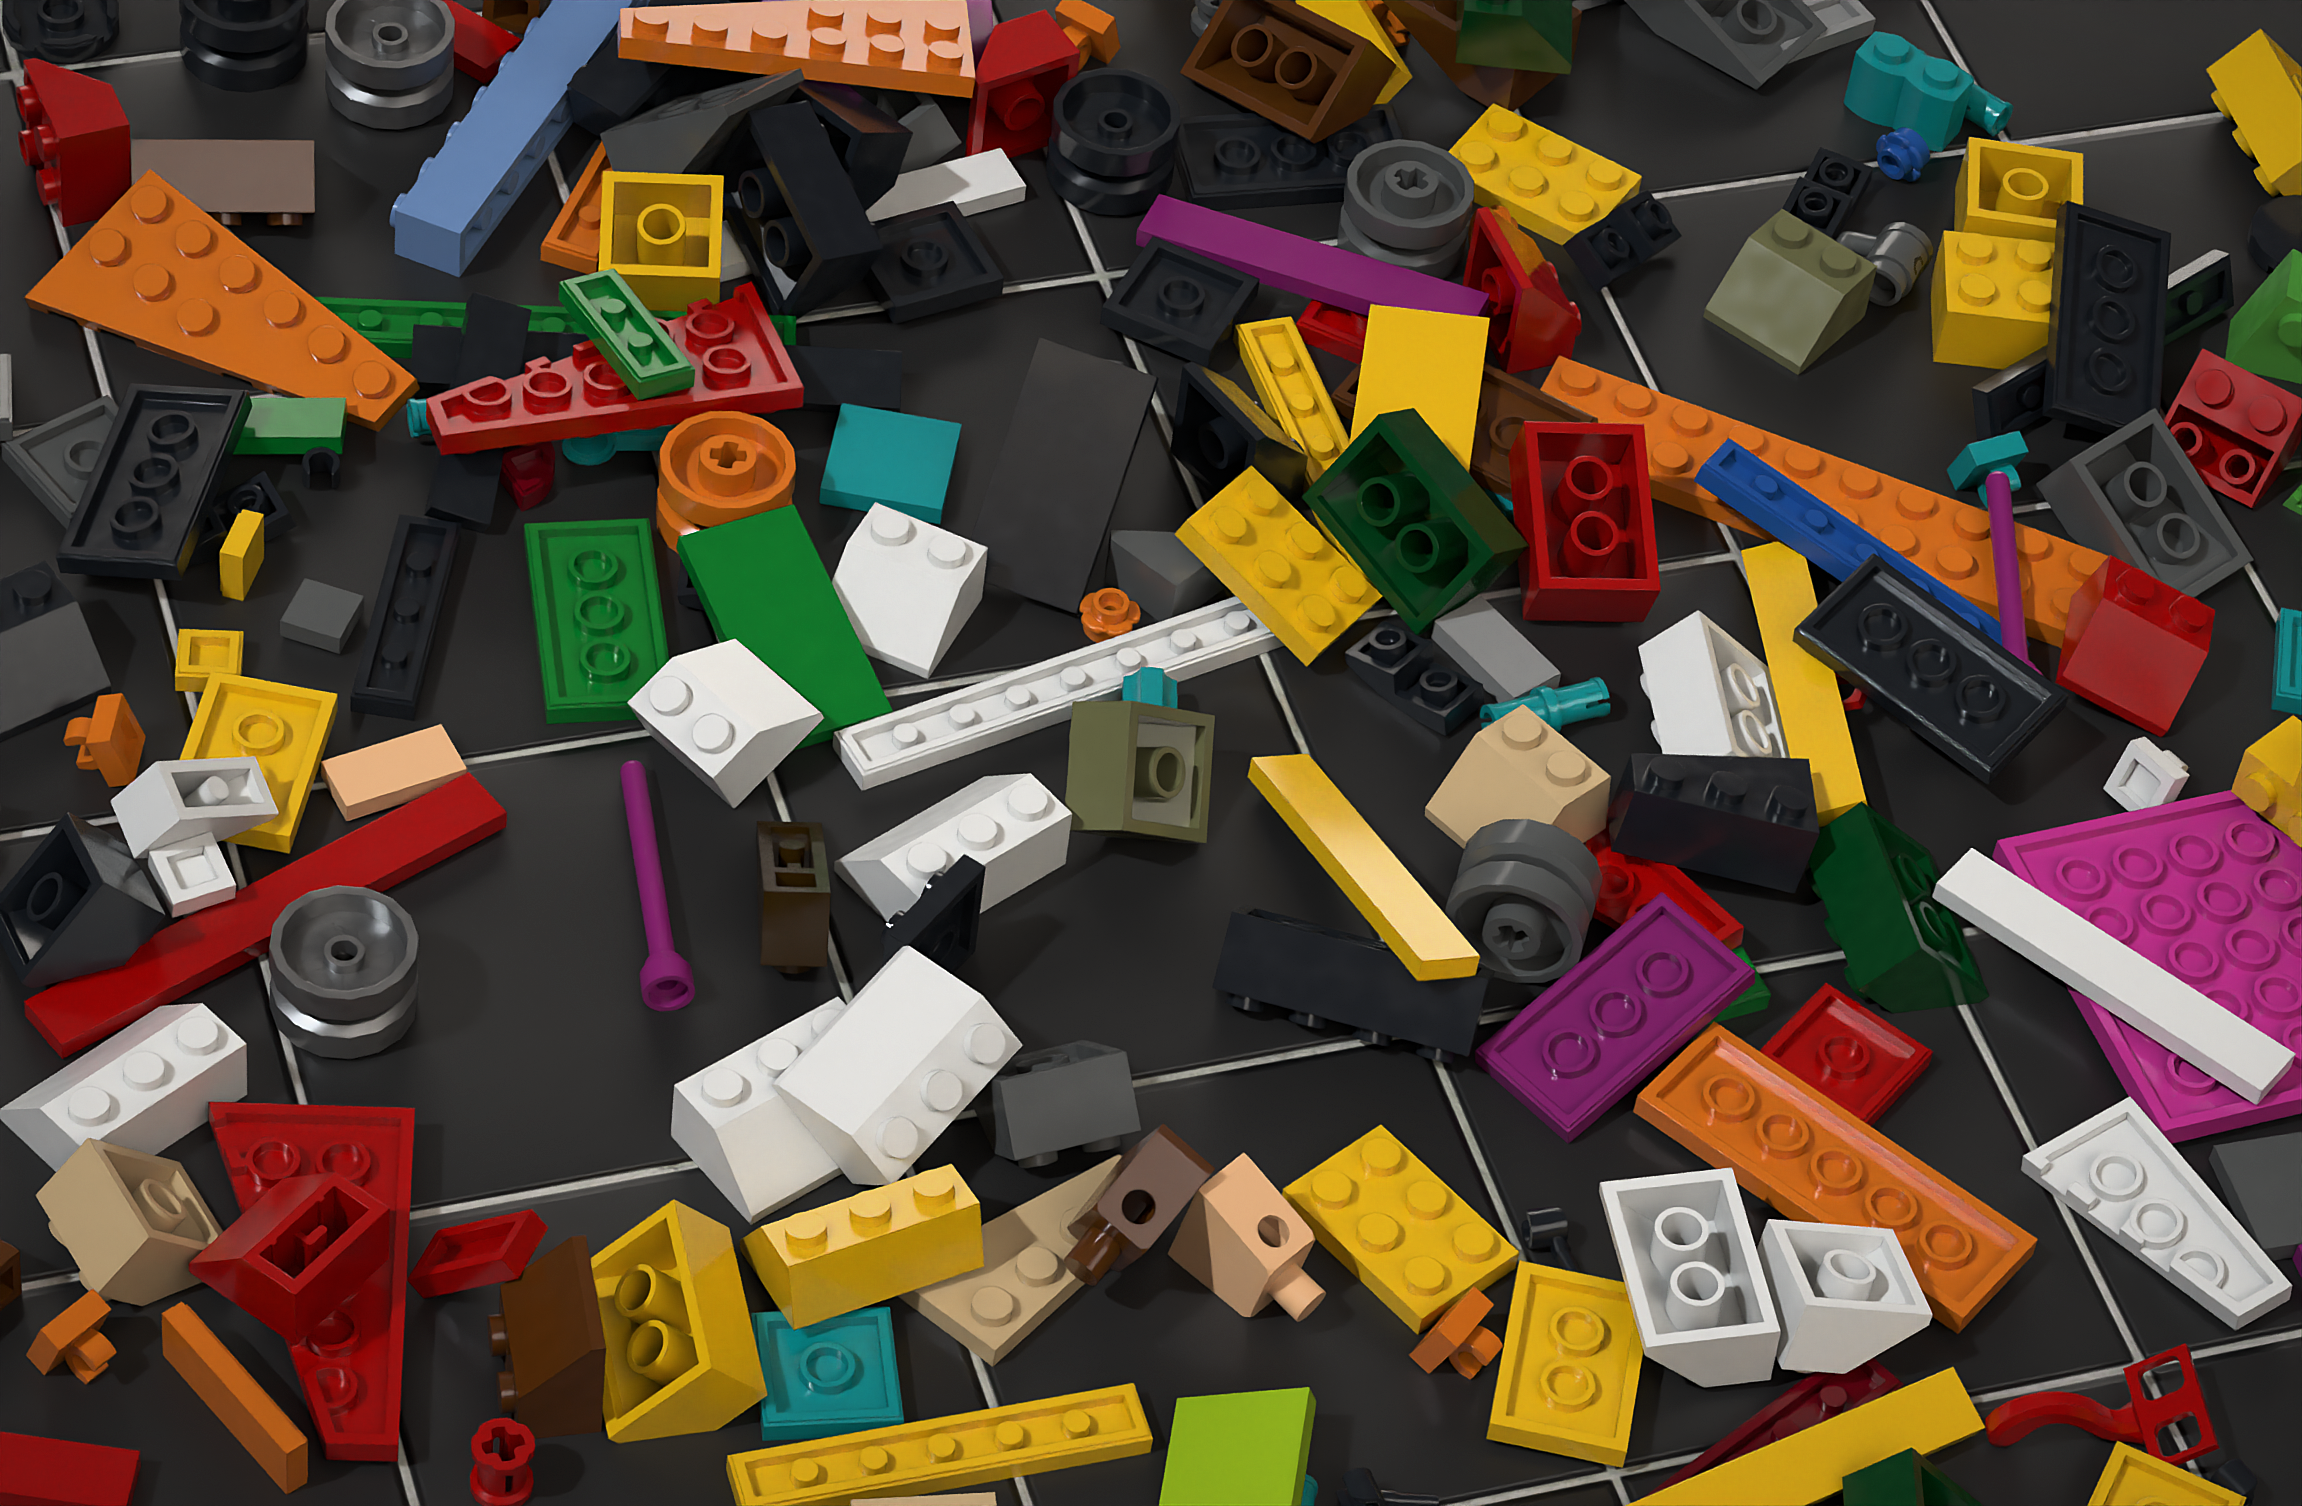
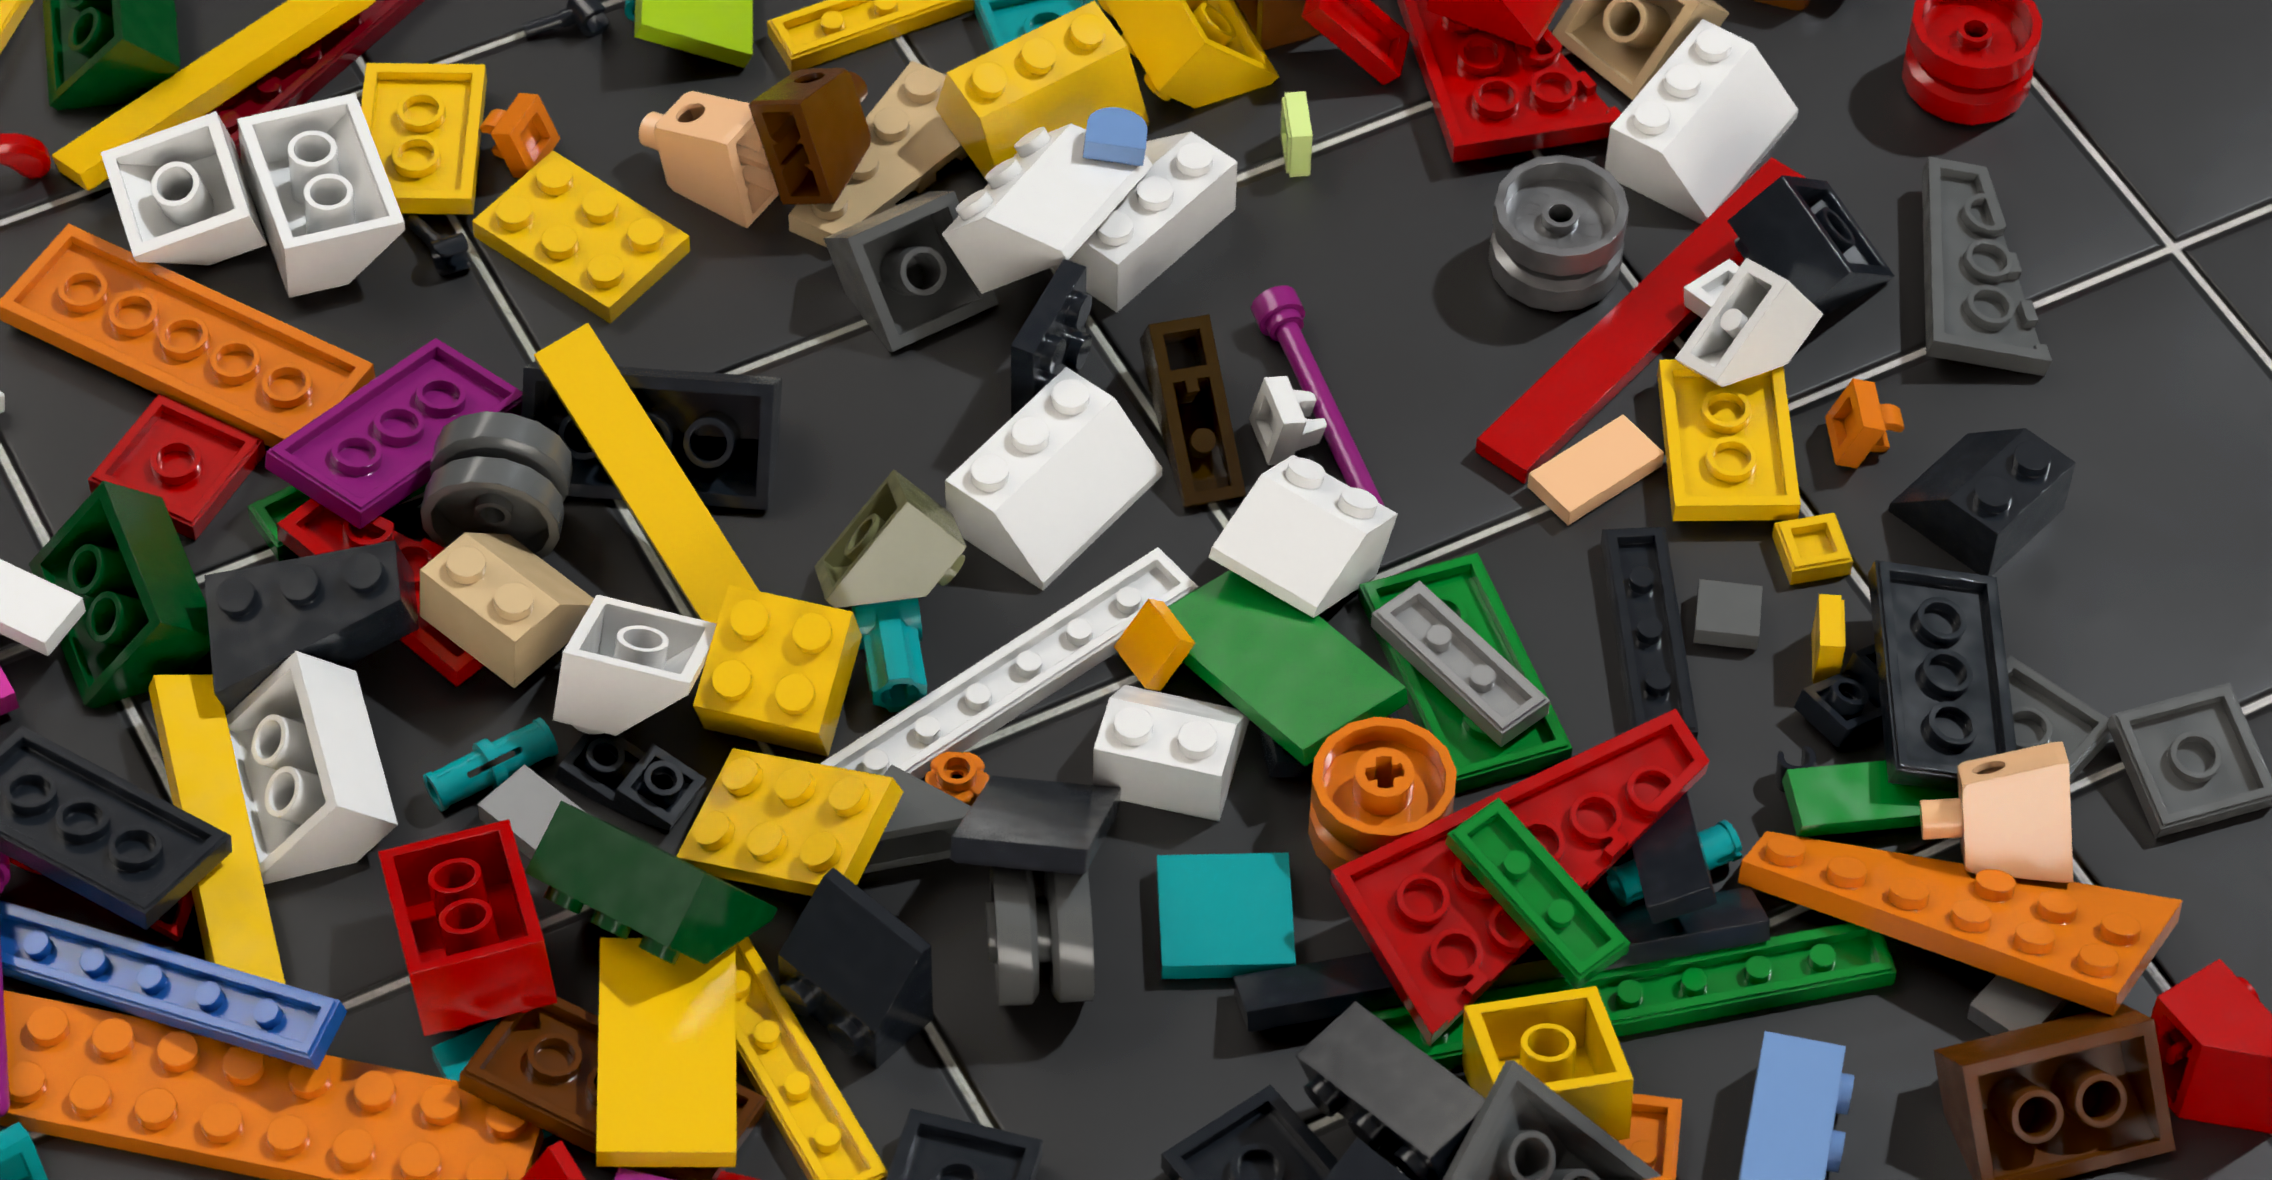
camera: 175 degrees right, 5 degrees up
(137, 338) = (2010, 814): none -> light nougat torso
(584, 1165) = (1296, 134): none -> yellowish green tile
(607, 598) = (1460, 663): none -> light grey tile
(701, 861) = (1281, 420): none -> white tile
(811, 1089) = (1115, 136): none -> medium blue tile
(893, 672) = (1154, 644): none -> light orange tile
(1270, 693) = (777, 670): none -> yellow brick
(1404, 706) = (628, 665): none -> white slope

